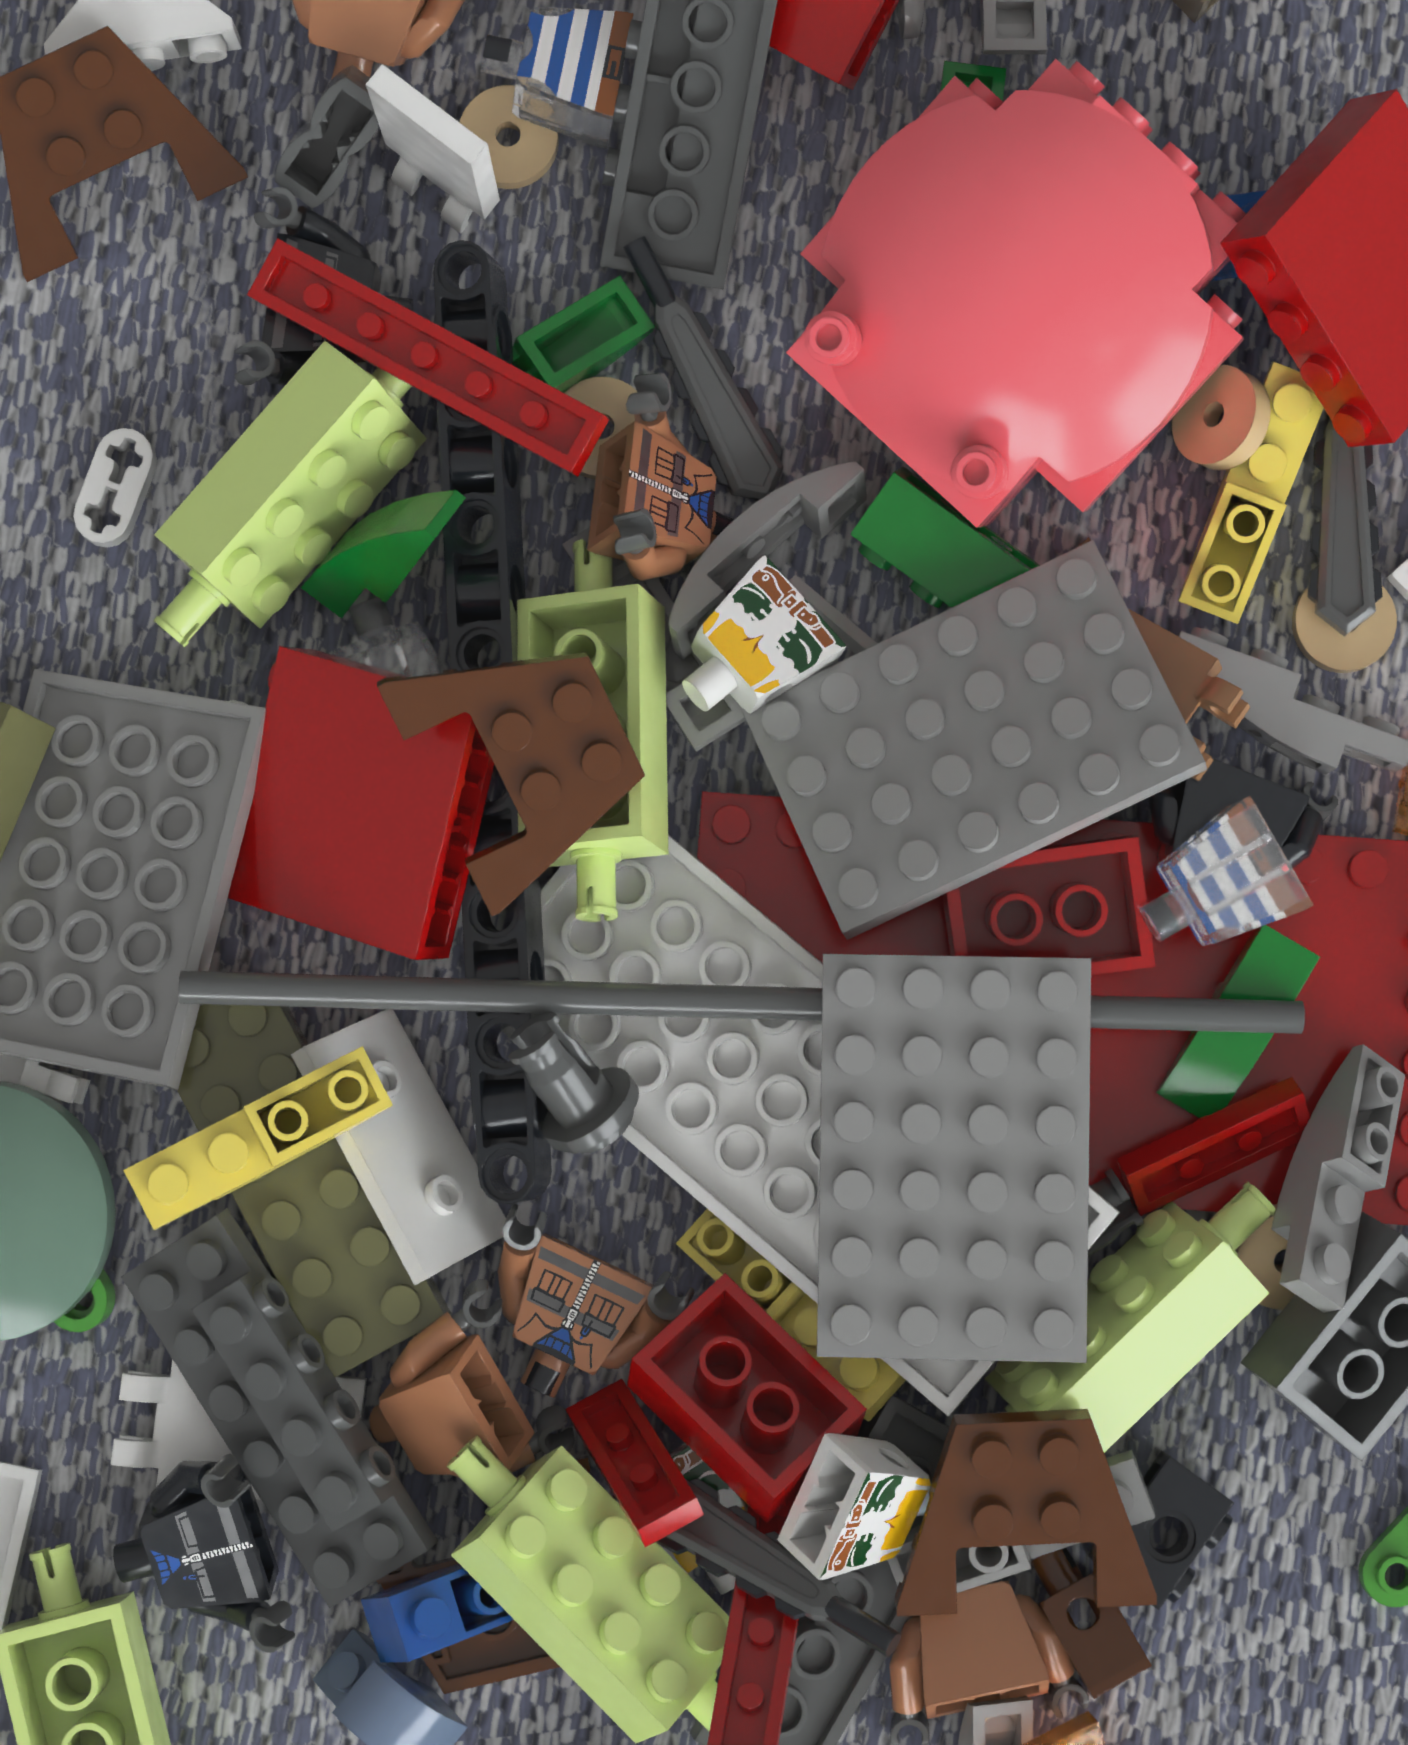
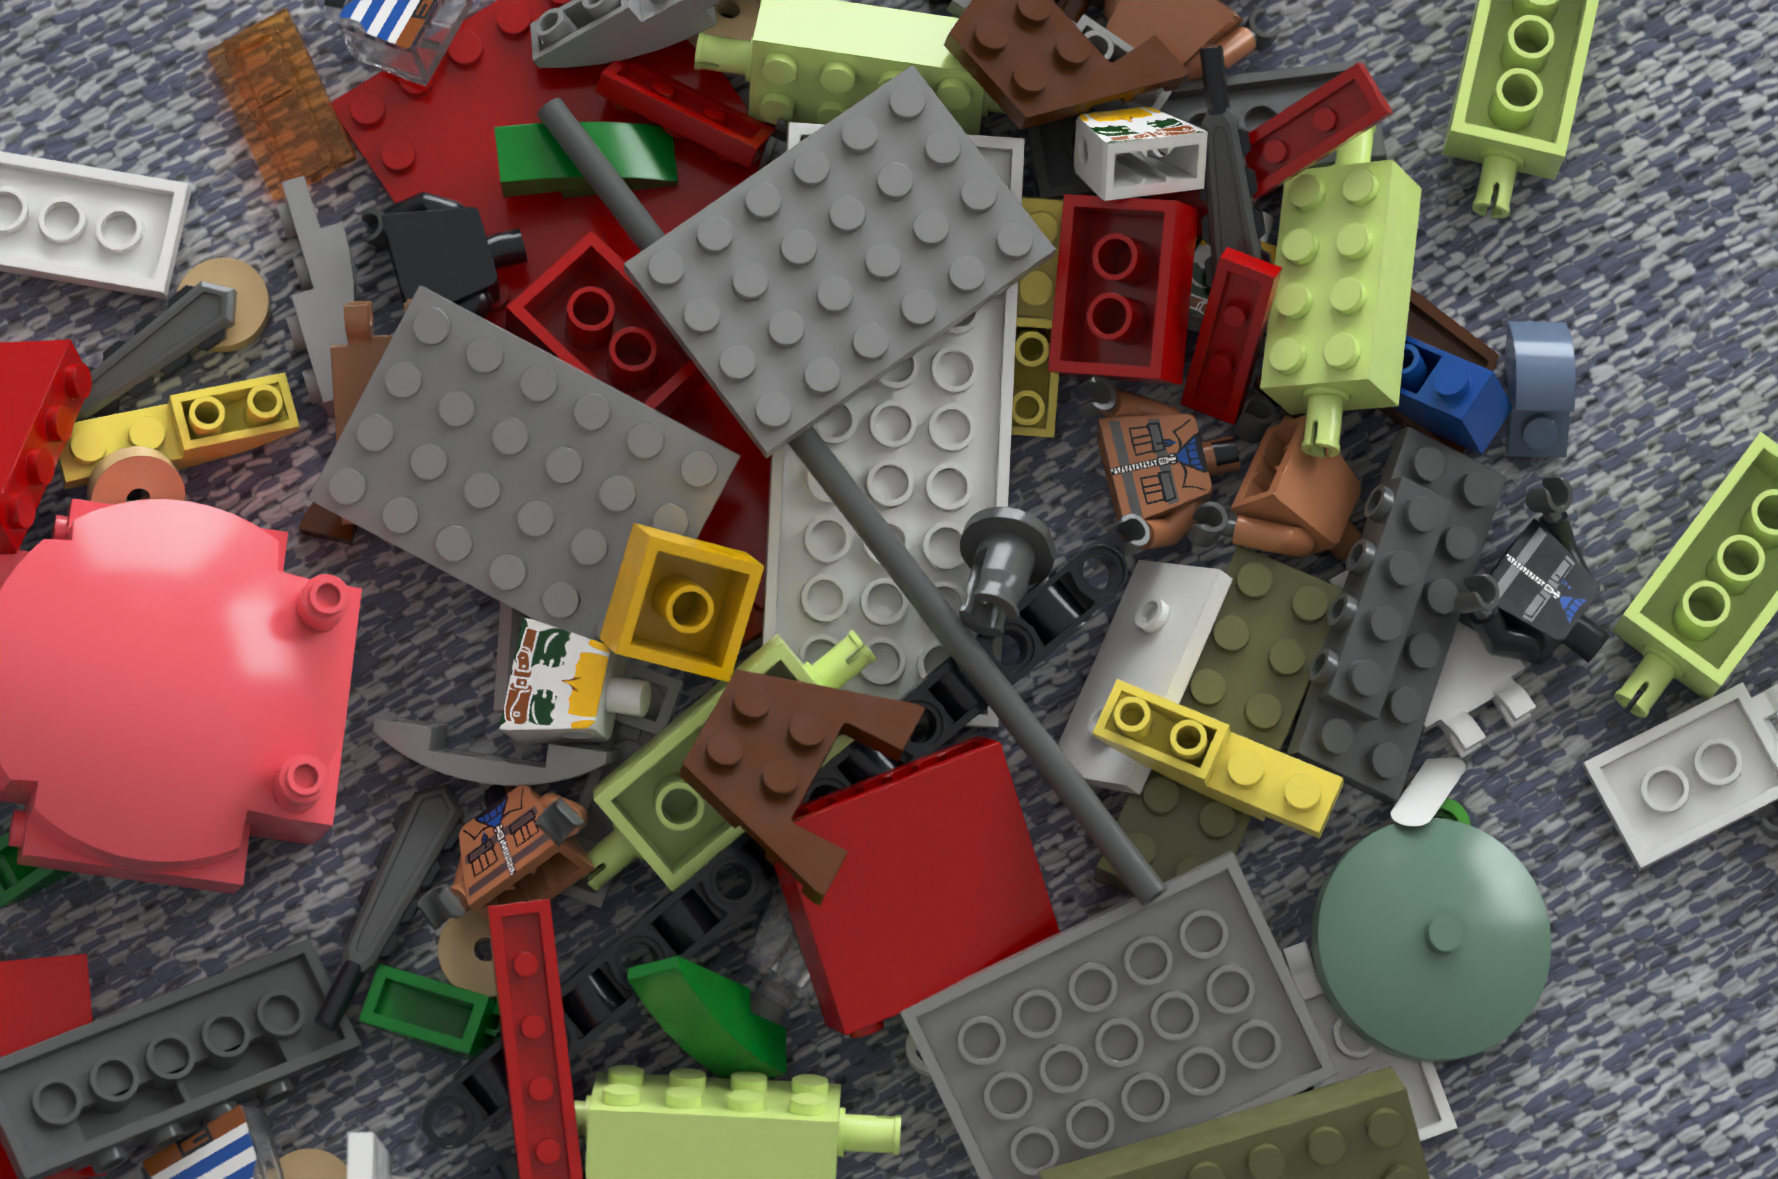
camera: 130 degrees left, 10 degrees down
(113, 1312) = (1427, 791): none -> white sticker
(748, 781) = (681, 602): none -> yellow brick
(934, 543) = (394, 623): green brick -> none
(1226, 880) = (491, 222): clear torso -> none

